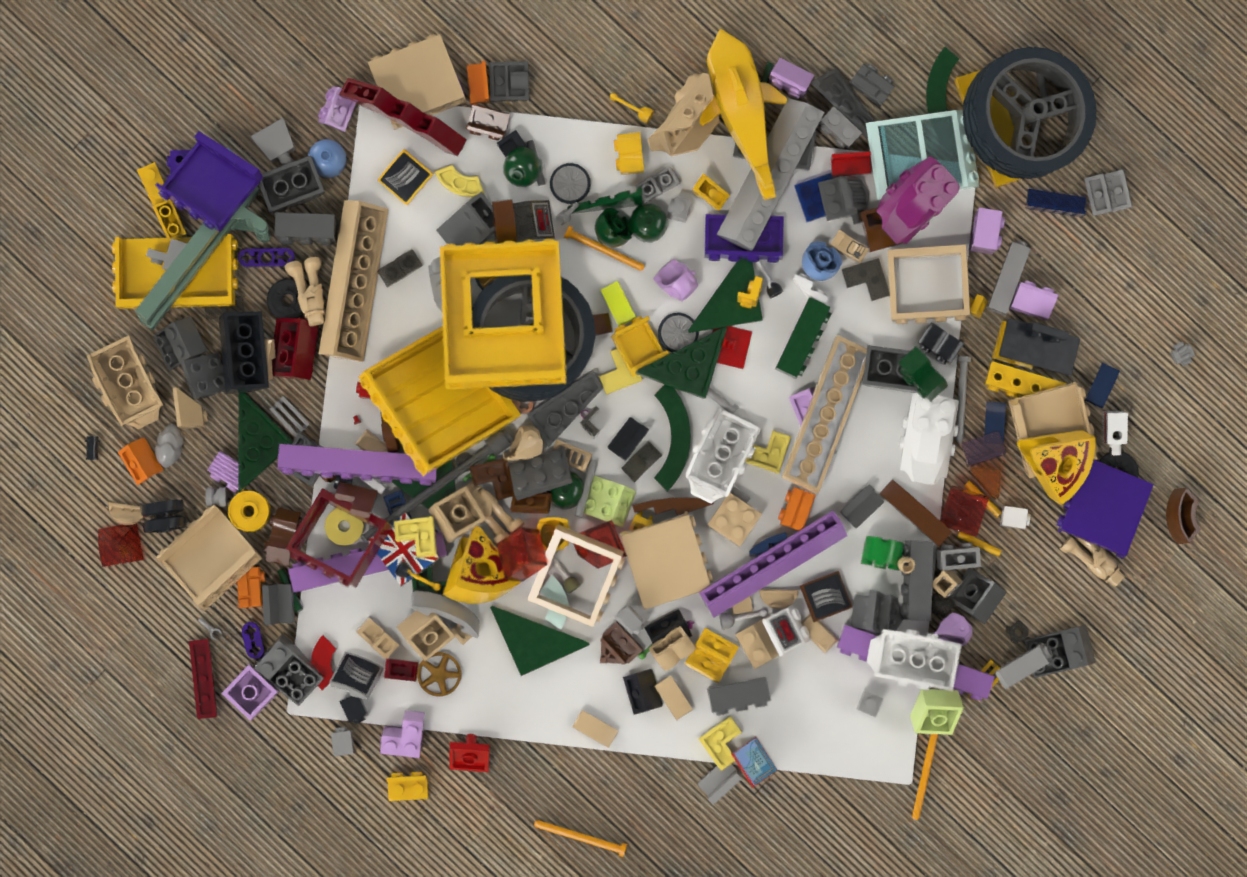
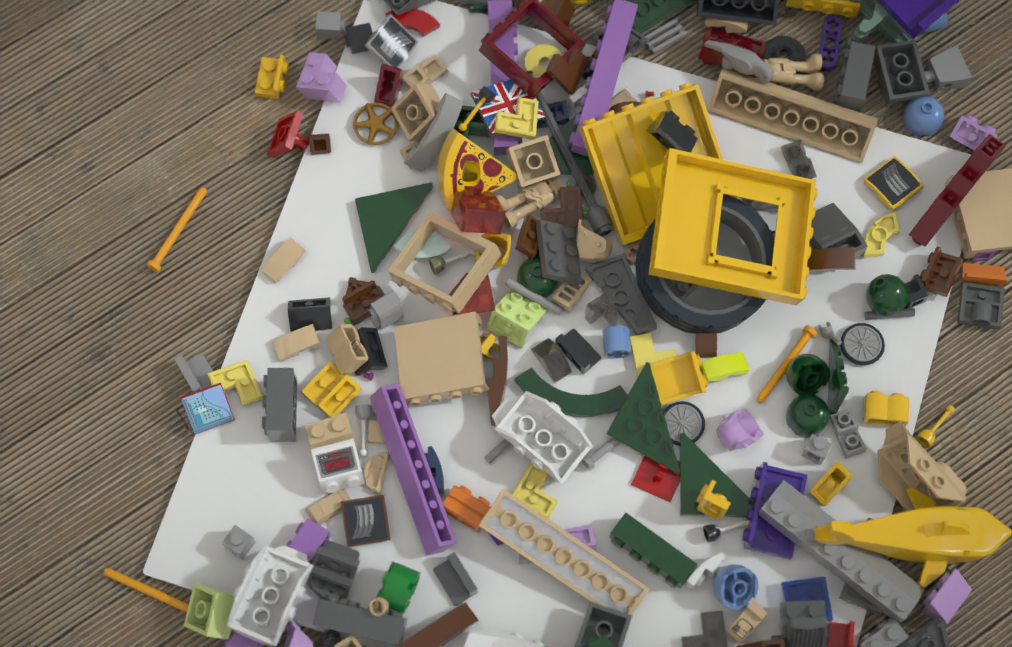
camera: 100 degrees right, 15 degrees down
(313, 336) = (742, 61): none -> light grey animal
(419, 384) = (672, 133): none -> black slope
(471, 722) = (320, 143): none -> reddish brown slope
(533, 221) = (827, 296): clear smoke slope -> none
(615, 405) = (616, 342): none -> medium blue piece
(734, 519) = (469, 439): tan brick -> none

